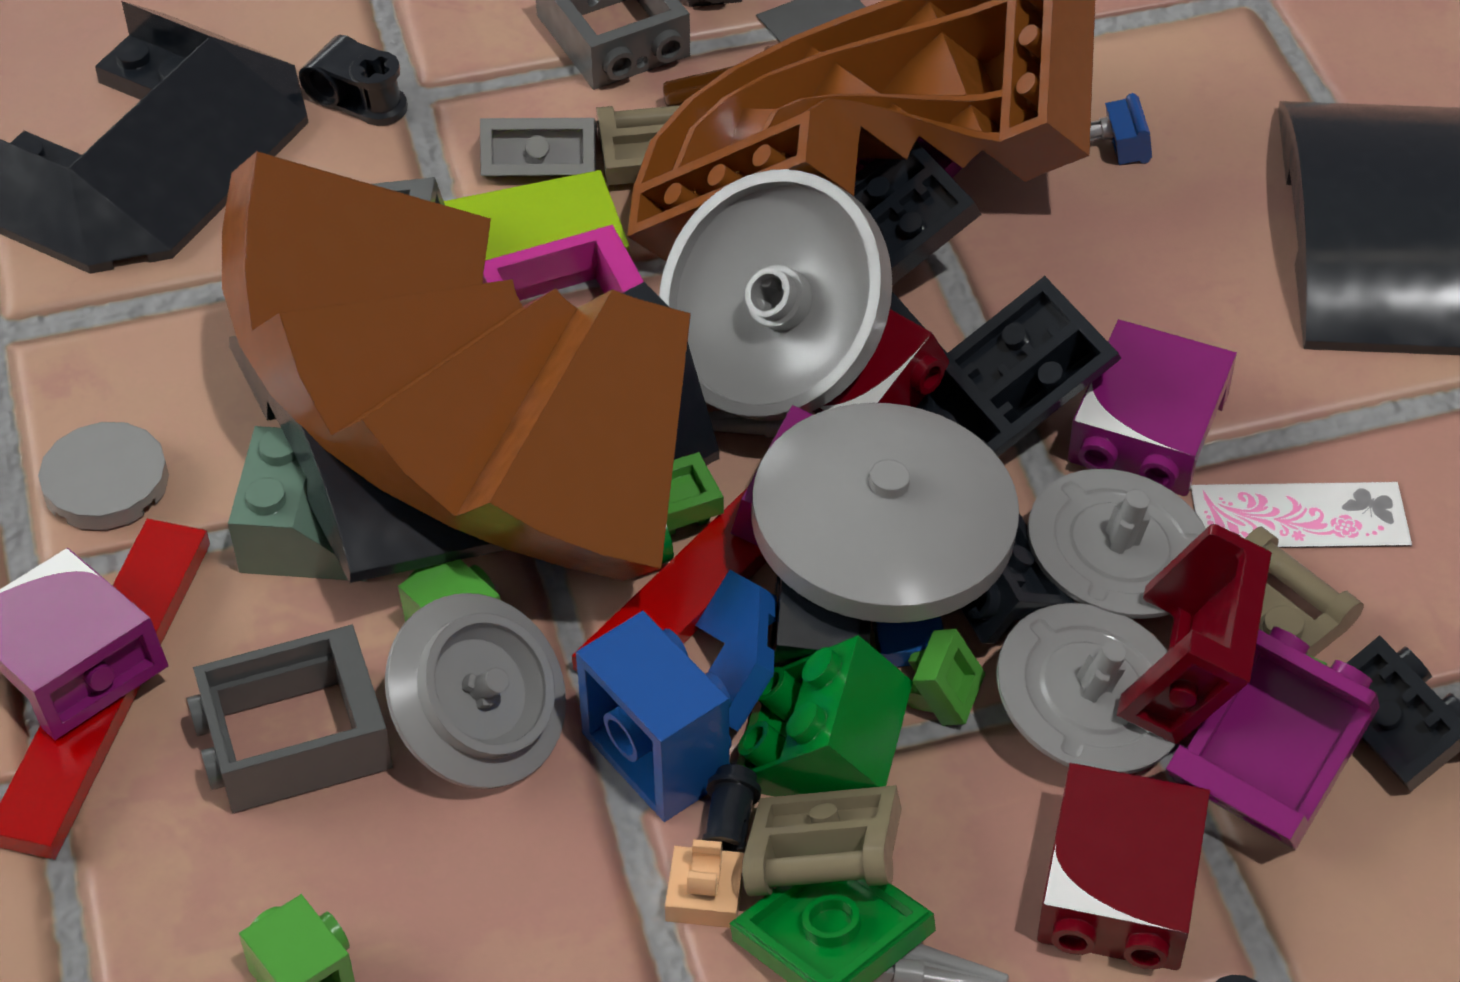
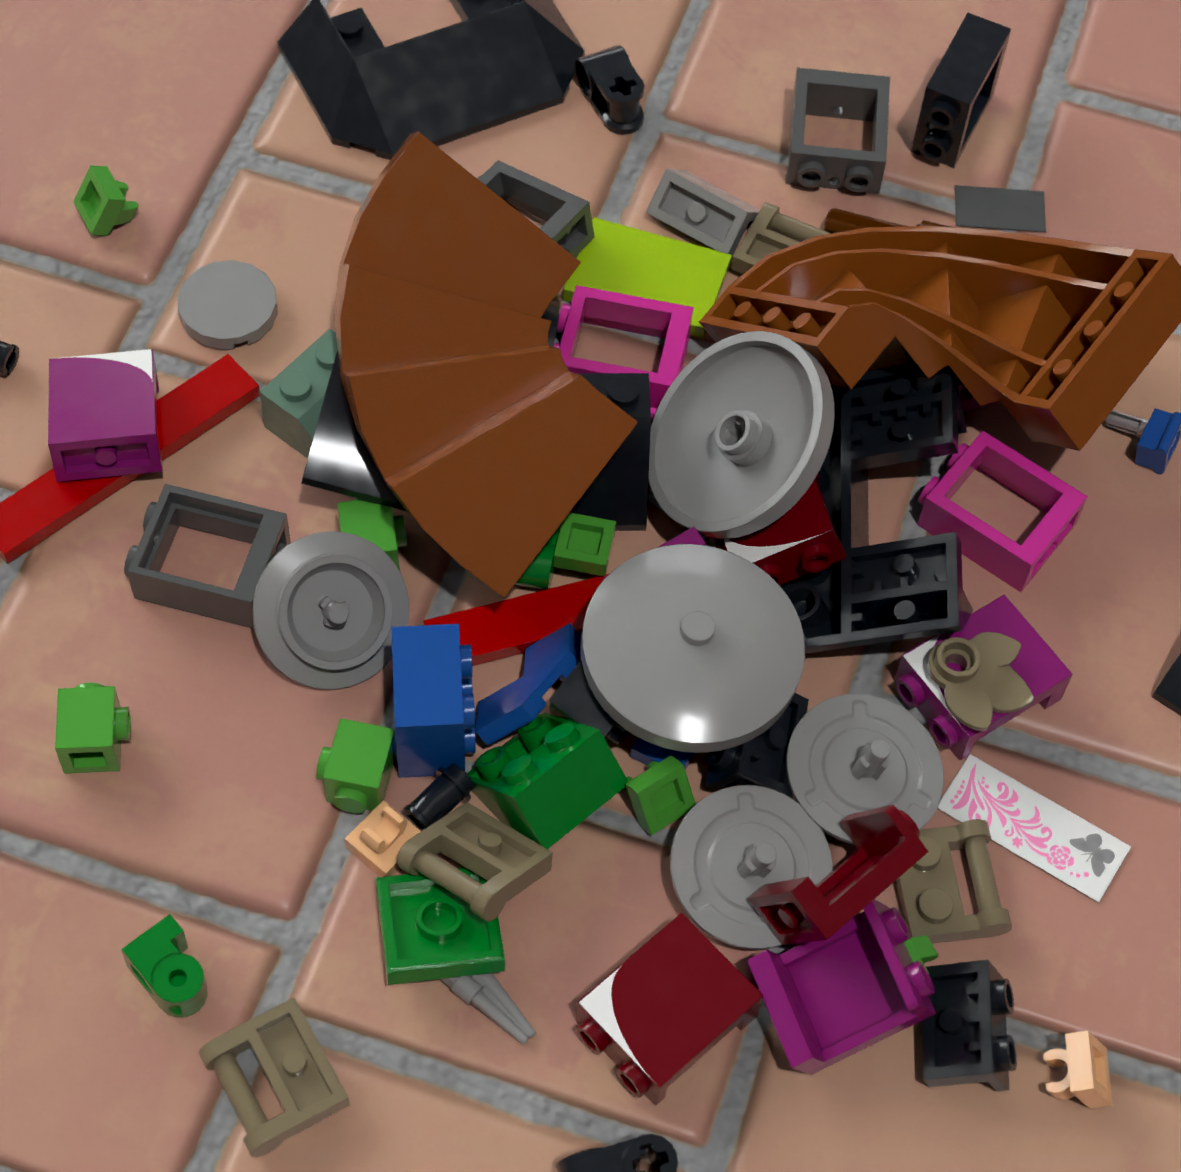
camera: 30 degrees right, 10 degrees up
(622, 827) = (357, 765): none -> bright green brick
(1050, 222) = (981, 542): none -> dark pink window
(1162, 397) = (986, 677): none -> dark tan plate

